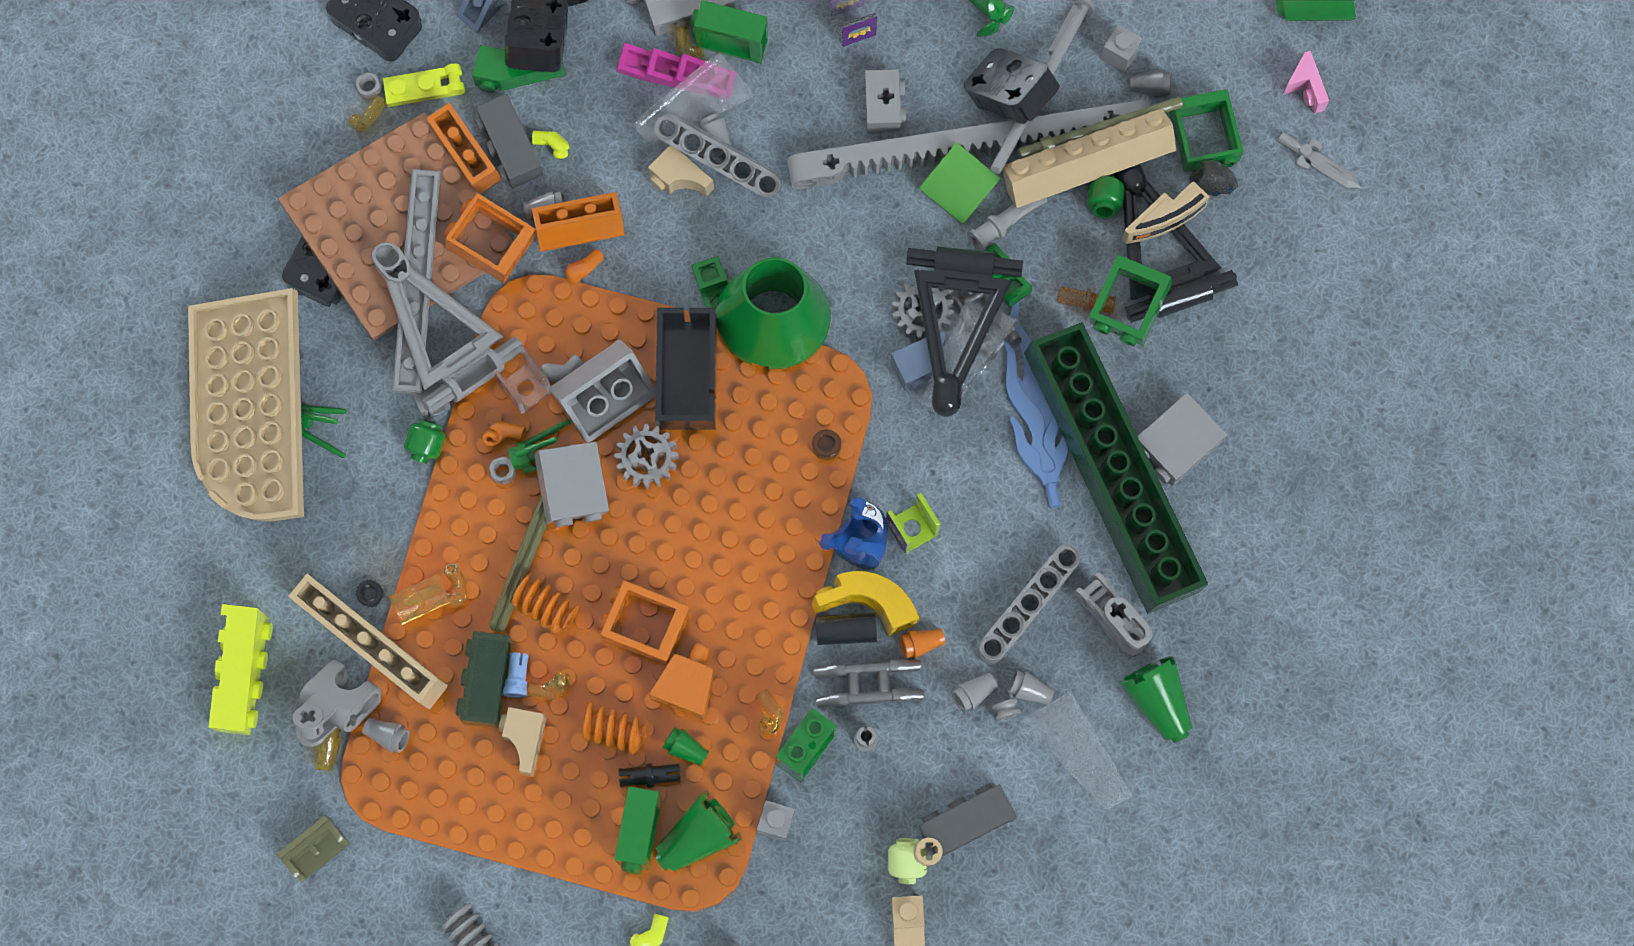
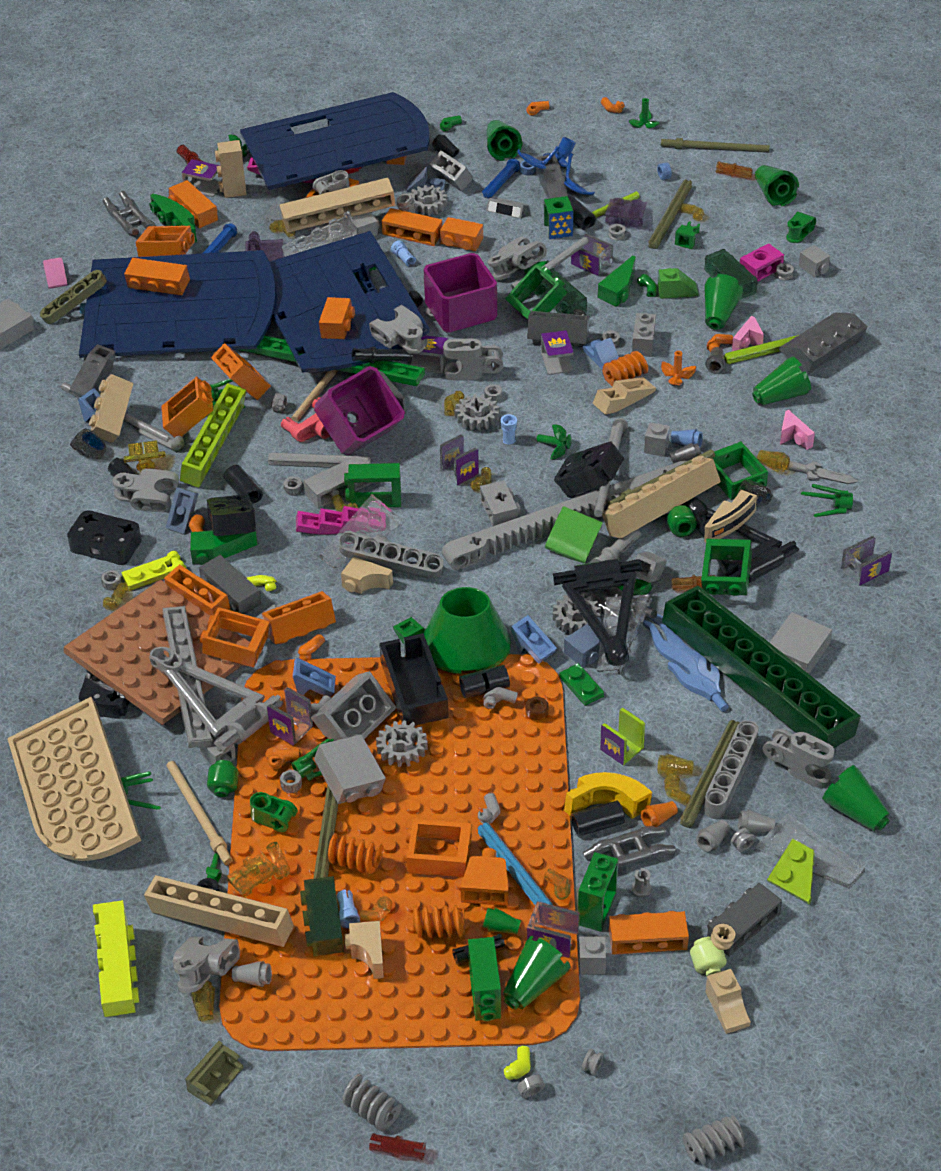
camera: 15 degrees left, 30 degrees down
(379, 571) = (212, 871): none -> green hand
(397, 531) = (217, 843): none -> tan bar
(471, 517) = (271, 811): none -> green piece
(493, 28) = (197, 523): none -> orange arm
(567, 329) = (311, 677): none -> medium blue slope
(724, 585) = (492, 811): none -> light grey arm
(725, 674) = (513, 866): none -> dark azure axle
(732, 753) = (555, 918): none -> clear piece
(773, 390) = (484, 681): none -> black pin
(785, 413) = (498, 694): none -> light grey arm
(850, 806) = (648, 932): none -> orange brick
(853, 342) = (531, 638): none -> medium blue slope
(862, 537) = (588, 753): blue piece -> none
(878, 52) = (484, 479): none -> clear yellow arm
(894, 418) = (581, 684): none -> green plate
(950, 610) = (673, 789): none -> clear yellow arm
(963, 577) = (672, 764): none -> clear yellow cone
(1003, 599) = (698, 796): none -> olive axle
(1038, 263) = (651, 566): none -> light grey brick
(1050, 773) = (795, 871): none -> lime wing
(1163, 54) = (686, 437): none -> medium blue cone
(1263, 125) = (775, 460): none -> clear yellow cone
(1293, 337) = (869, 570): none -> clear piece
(1324, 216) = (841, 499): none -> green plant

